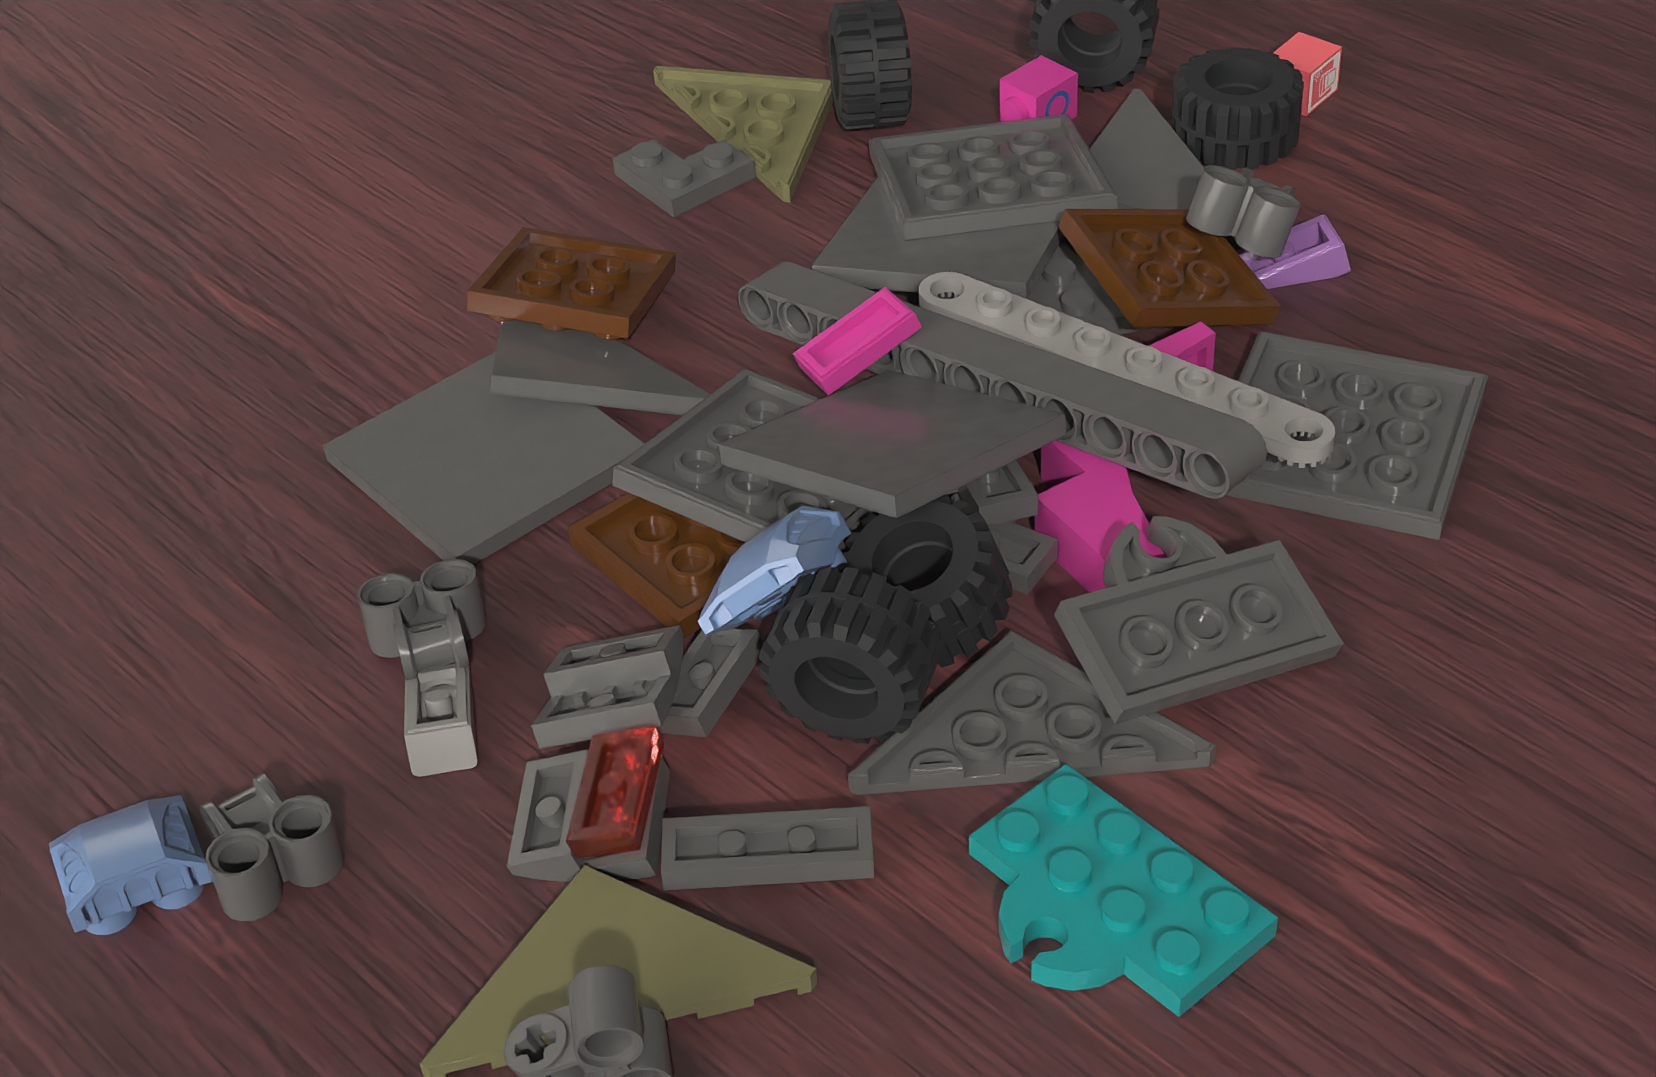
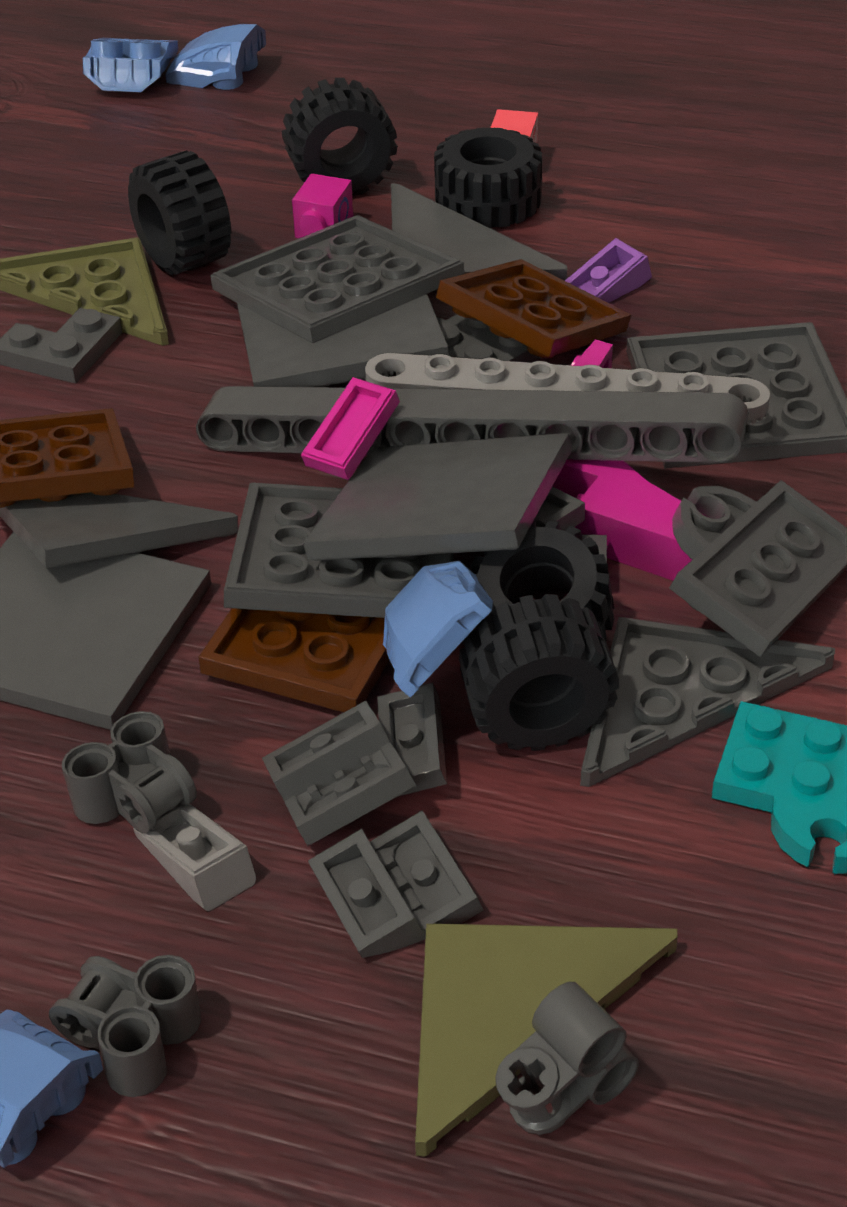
camera: 30 degrees left, 0 degrees up
(615, 792) = (419, 853): clear red plate -> none
(767, 848) = (563, 852): dark grey plate -> none
(1244, 208) = (565, 248): dark grey piece -> none

